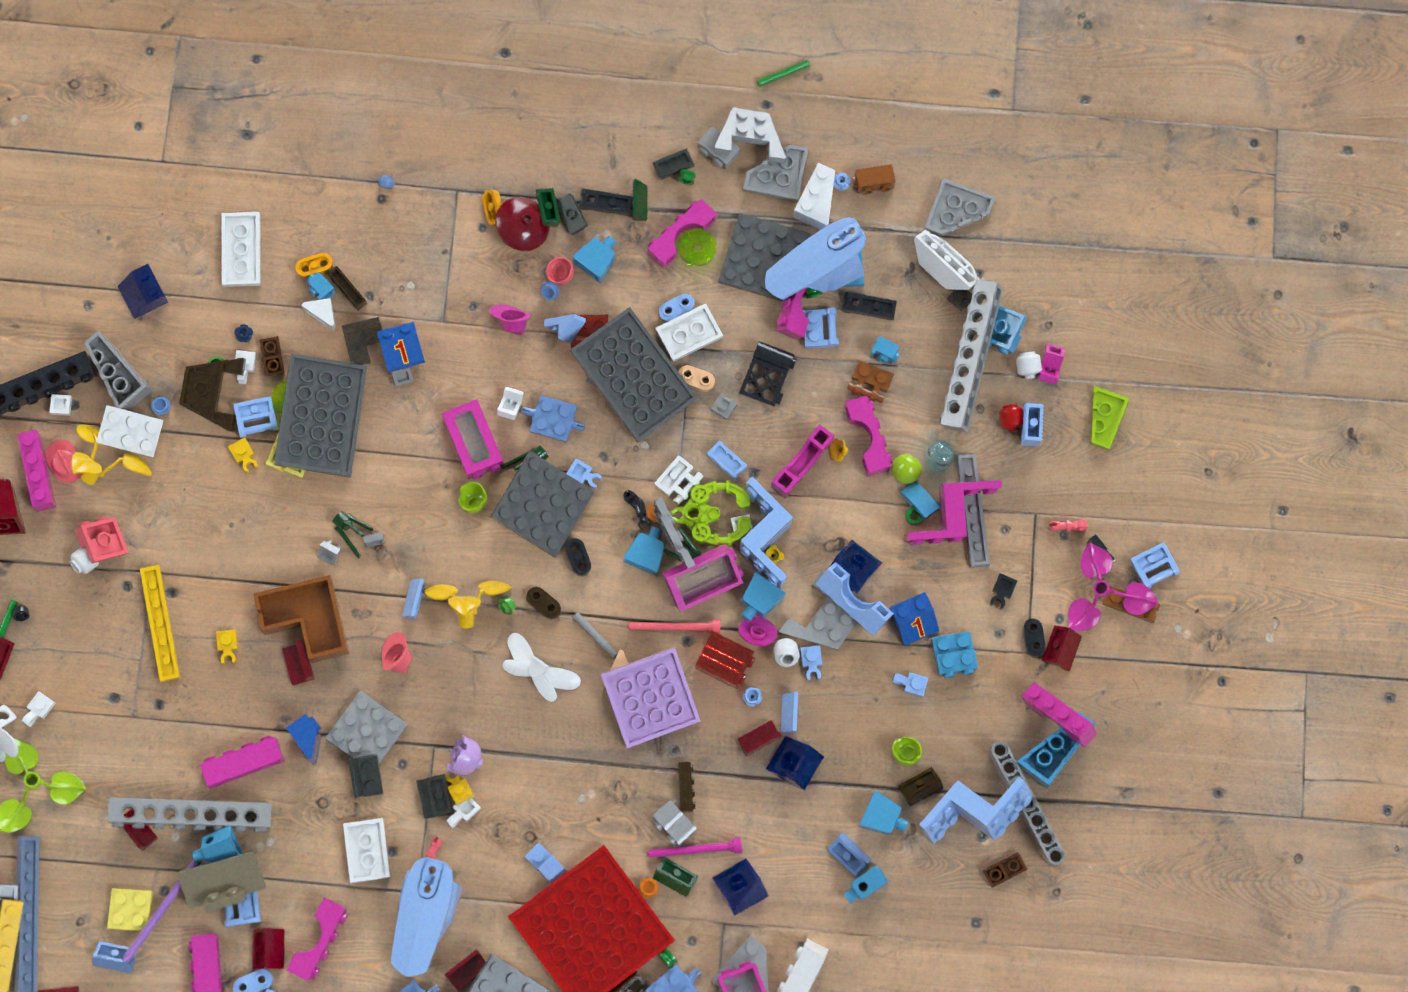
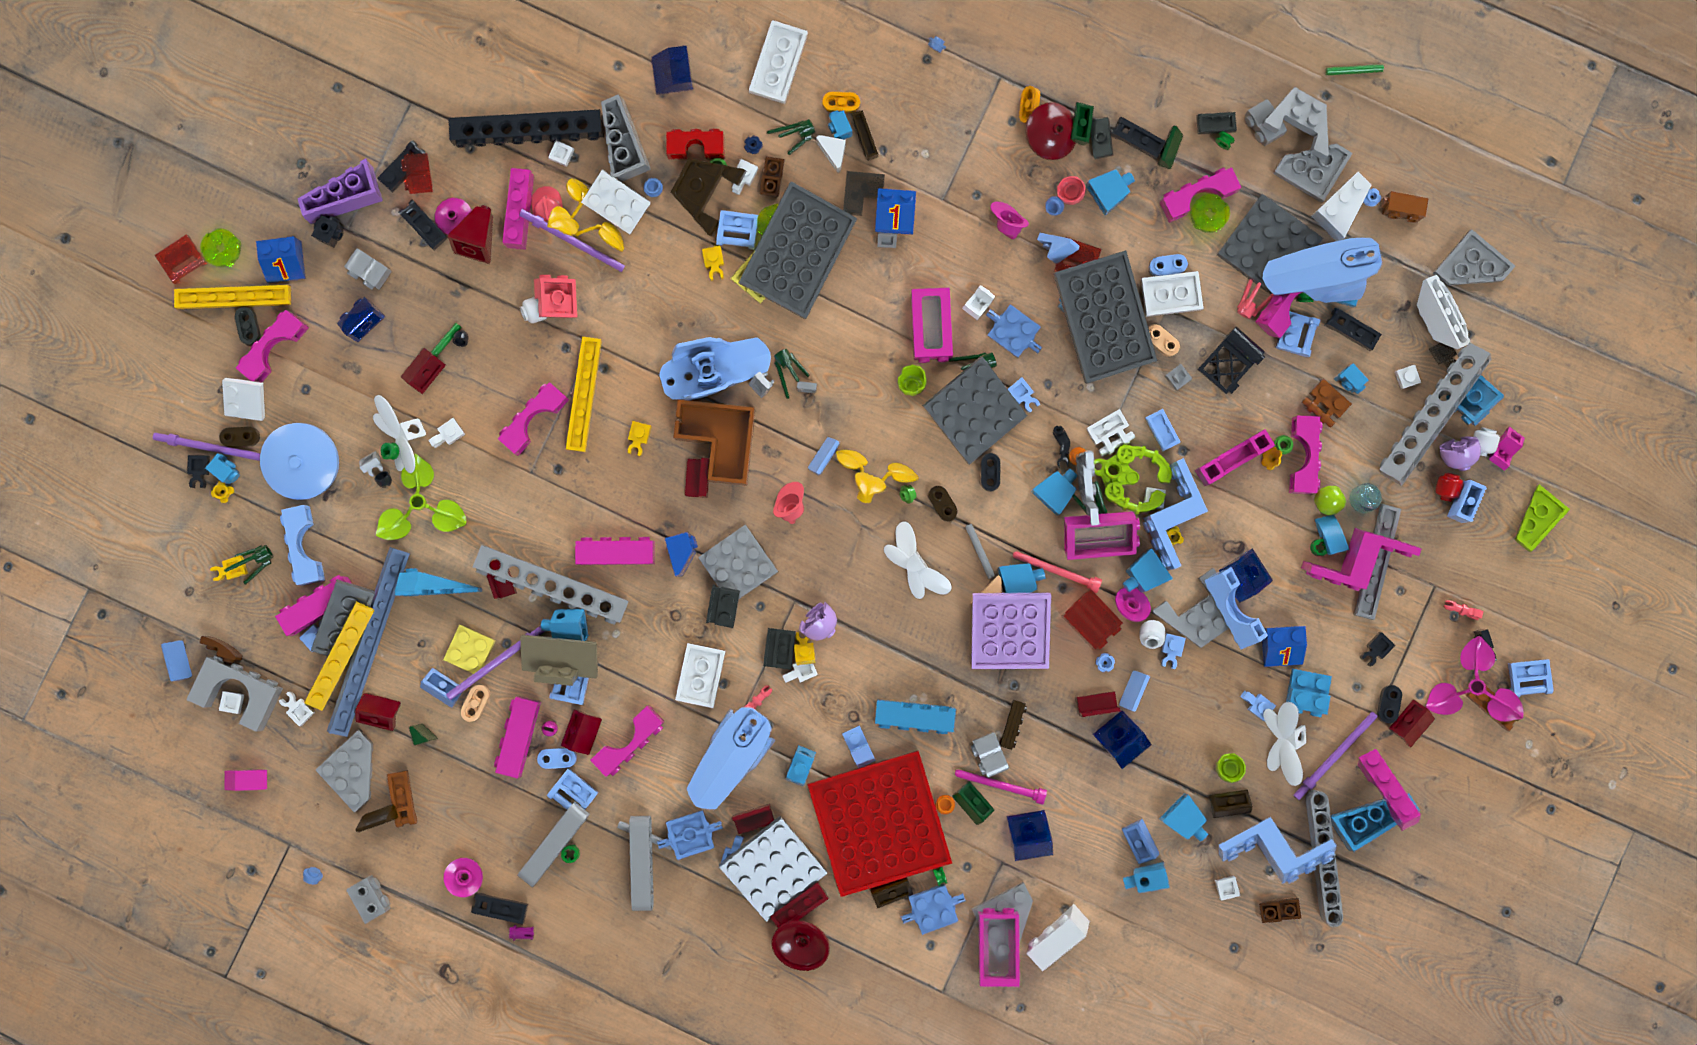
camera: 25 degrees right, 10 degrees up
(61, 475) = (538, 222): none -> medium lavender bar
(63, 861) = (420, 583): none -> dark azure wedge
(127, 640) = (516, 435): none -> dark pink arch
(153, 959) = (475, 702): none -> light nougat plate
(172, 354) = (680, 141): none -> red arch
(236, 962) = (550, 724): none -> dark pink hinge
(276, 551) = (713, 365): none -> light blue piece
(287, 302) = (803, 128): none -> dark green plant
(494, 902) = (800, 765): none -> dark azure torso
(588, 812) = (915, 715): none -> dark azure wedge
(641, 644) = (1020, 578): none -> dark azure torso
(764, 320) = (1246, 307): none -> coral plant
(845, 428) = (1287, 440): none -> bright green plate
(936, 331) = (1407, 377): none -> white plate
(946, 866) = (1227, 888): none -> white plate
(950, 718) = (1284, 749): none -> white piece
(987, 739) = (1310, 783): none -> medium lavender bar
(1010, 383) = (1461, 453): none -> lavender cylinder

